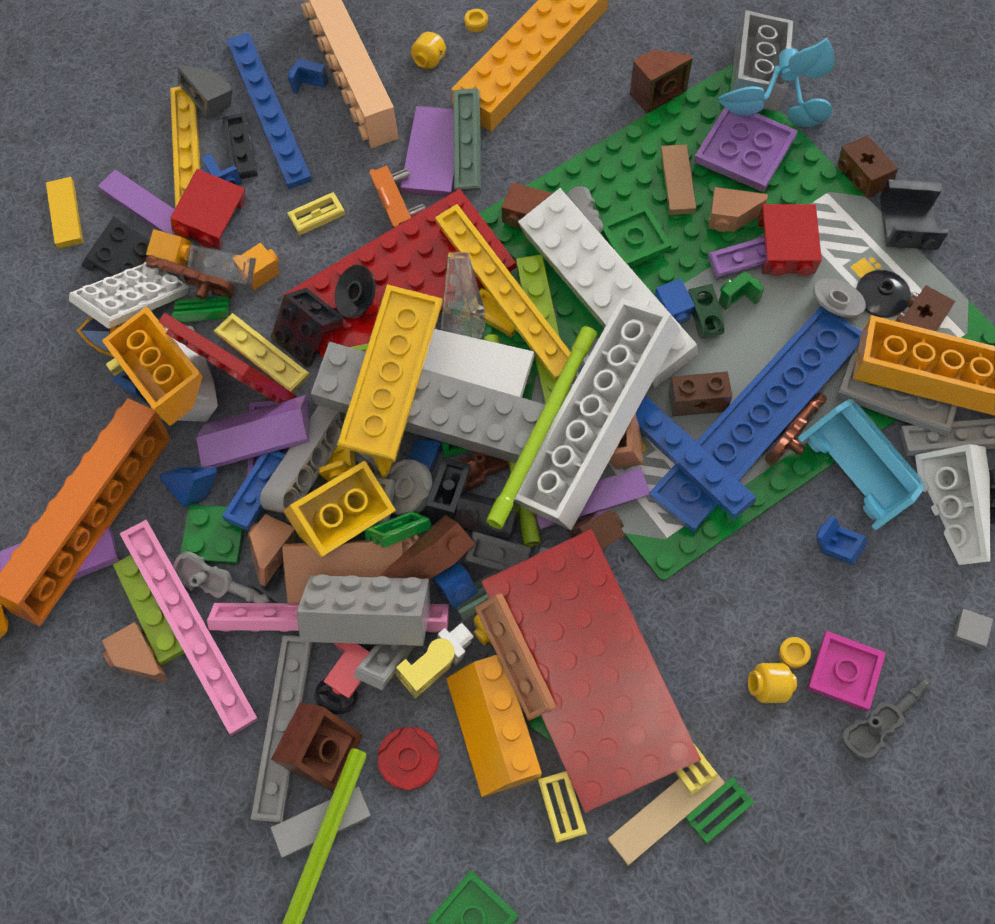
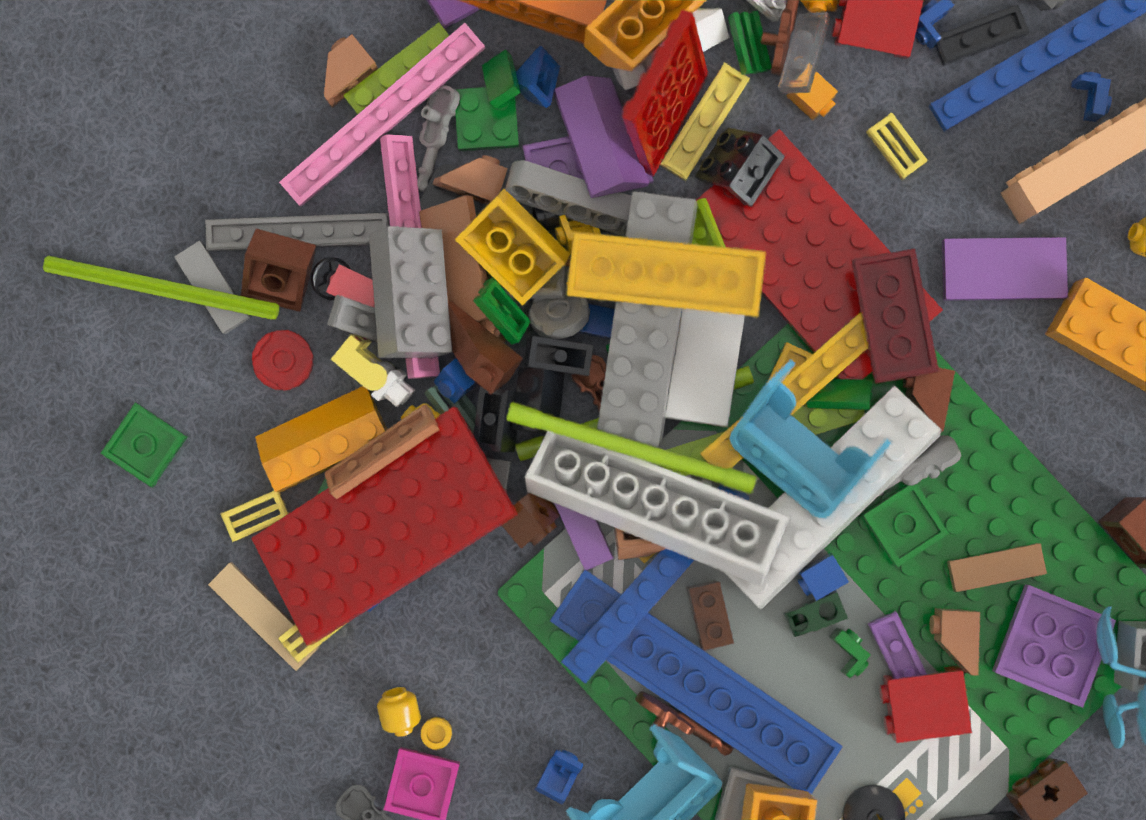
camera: 75 degrees right, 20 degrees up
(180, 510) = (500, 79): none -> green tile
(246, 504) = (513, 145): blue plate -> none
(355, 291) = (782, 213): black dish -> none
(390, 195) = (929, 228): orange piece -> none
(459, 213) = (894, 316): none -> dark red tile
(462, 303) = (786, 336): clear slope -> none
(467, 140) = (1017, 307): sand green tile -> none
(520, 261) = (844, 394): none -> green tile
(573, 294) = (796, 456): none -> medium azure windscreen
(739, 792) = (262, 676): green tile -> none
(839, 297) = (862, 769): light grey dish -> none

